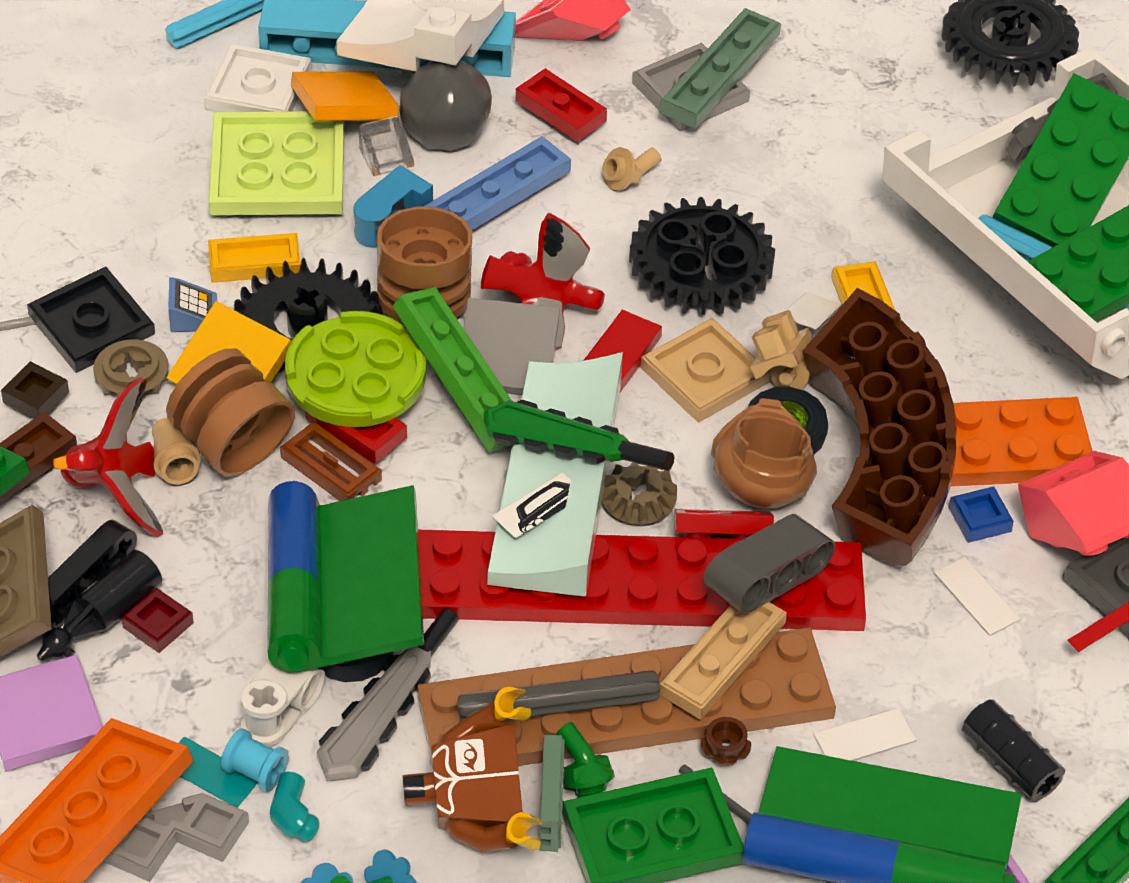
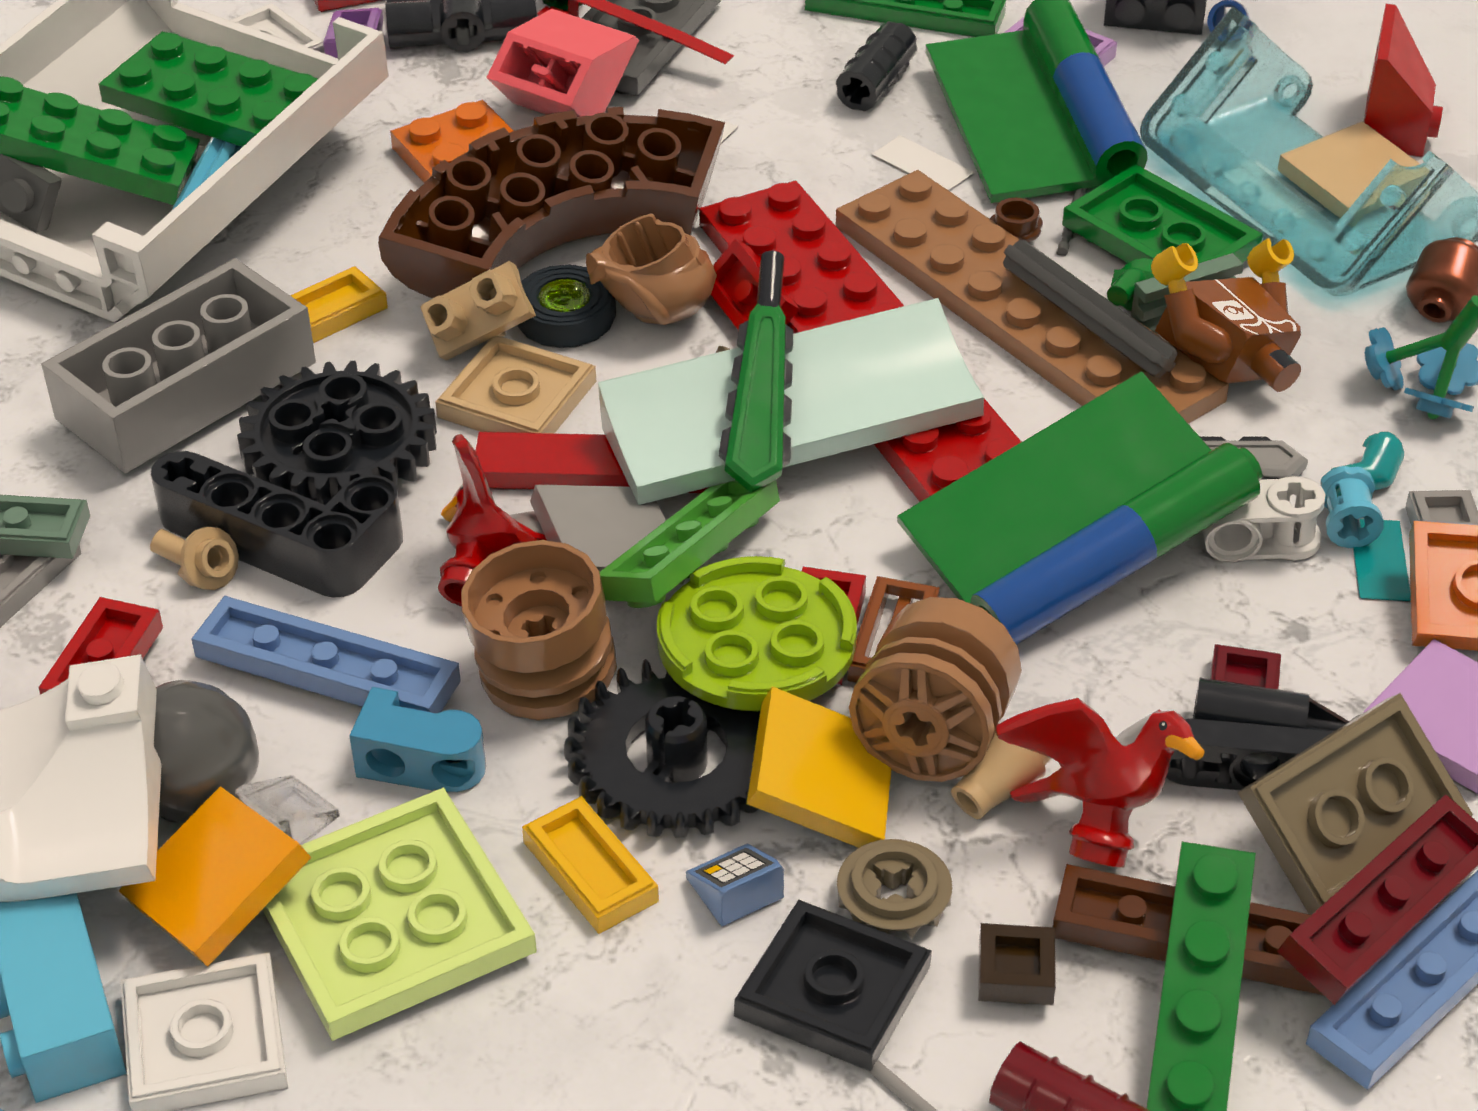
camera: 115 degrees left, 5 degrees down
(535, 506) = (872, 384): sticker -> none
(623, 197) = (300, 540): none -> black beam
(720, 657) = (931, 229): tan tile -> none
(769, 563) = (816, 205): dark grey beam -> none
(812, 310) = (377, 329): white sticker -> none
(813, 191) = (179, 364): none -> light grey brick

